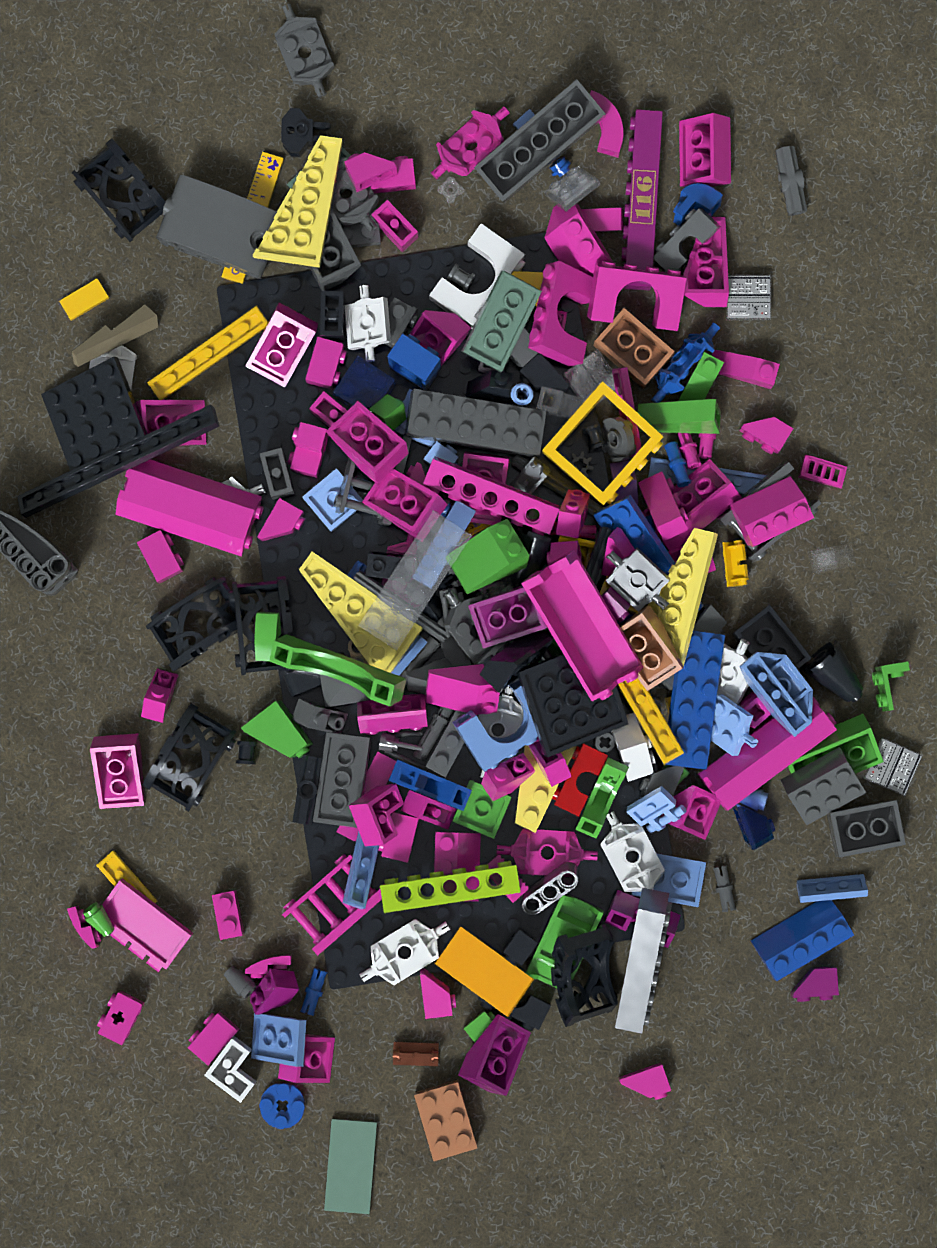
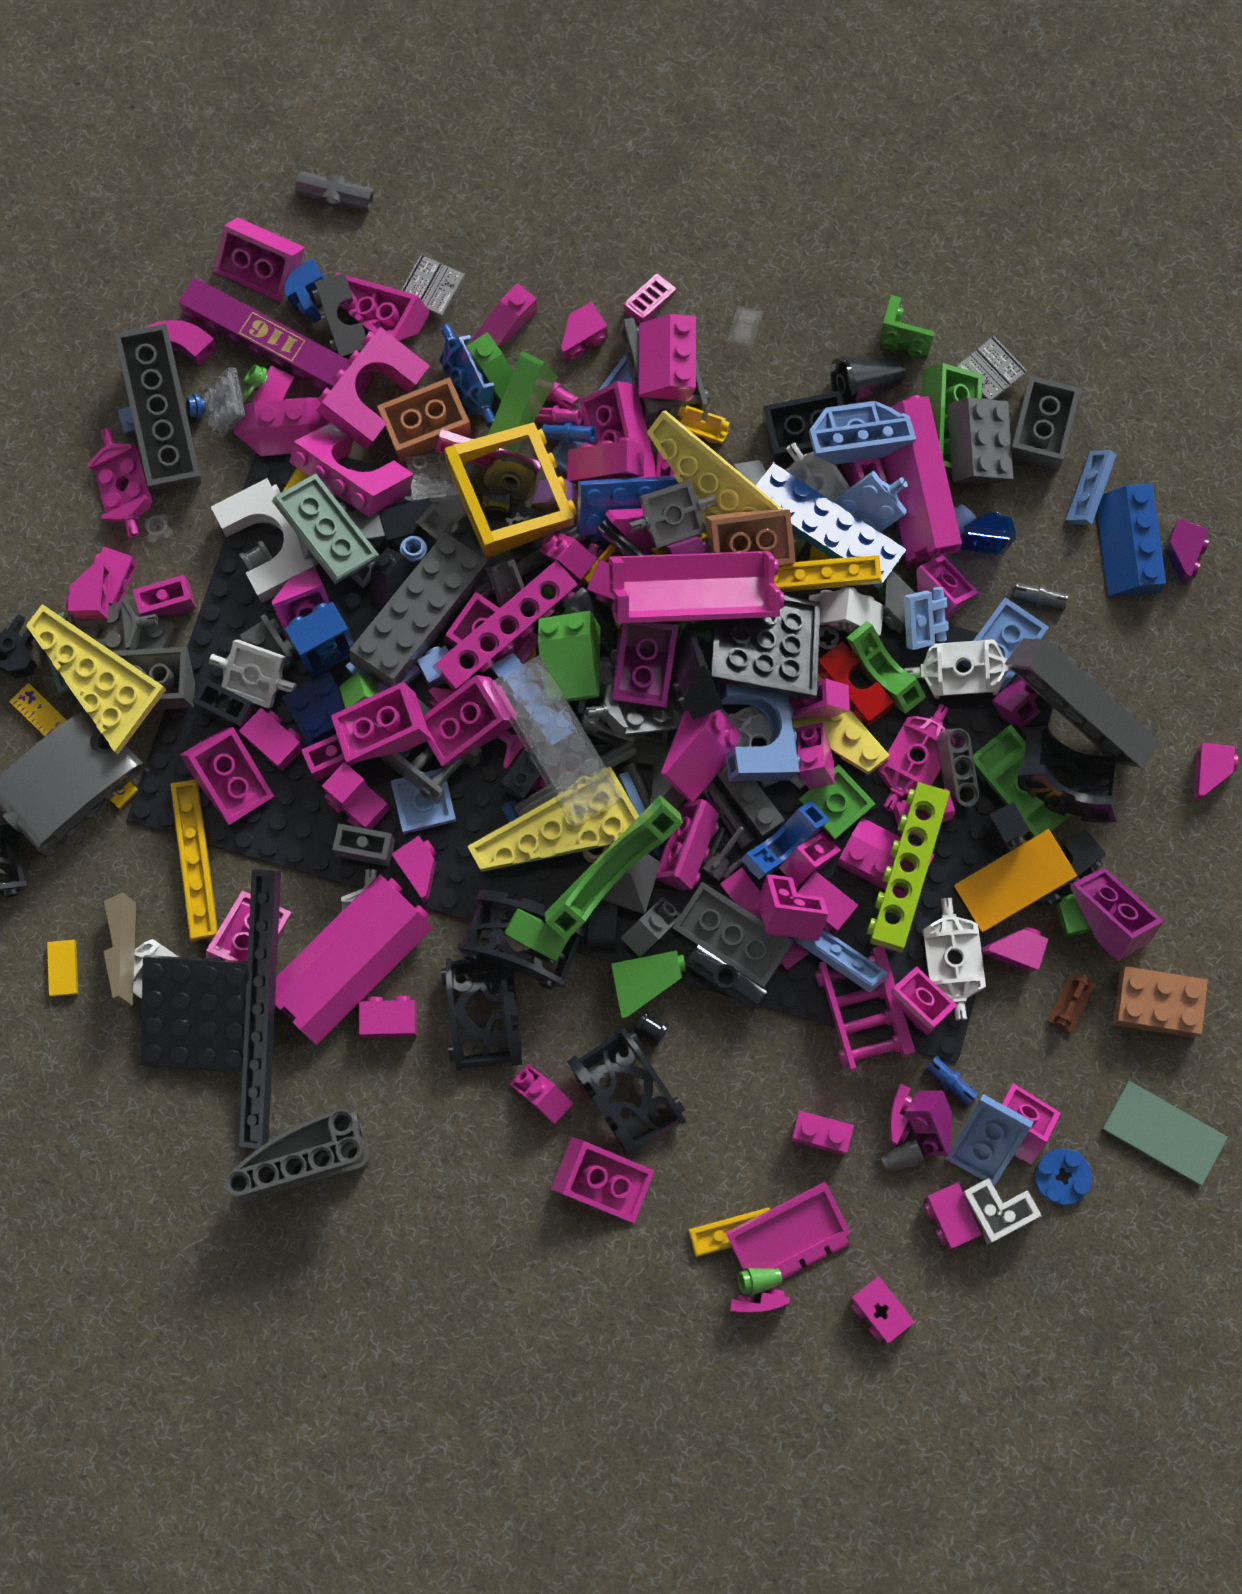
camera: 60 degrees left, 10 degrees down
(357, 943) = (922, 1001): none -> dark pink slope
(601, 202) = (255, 379): none -> bright green plate

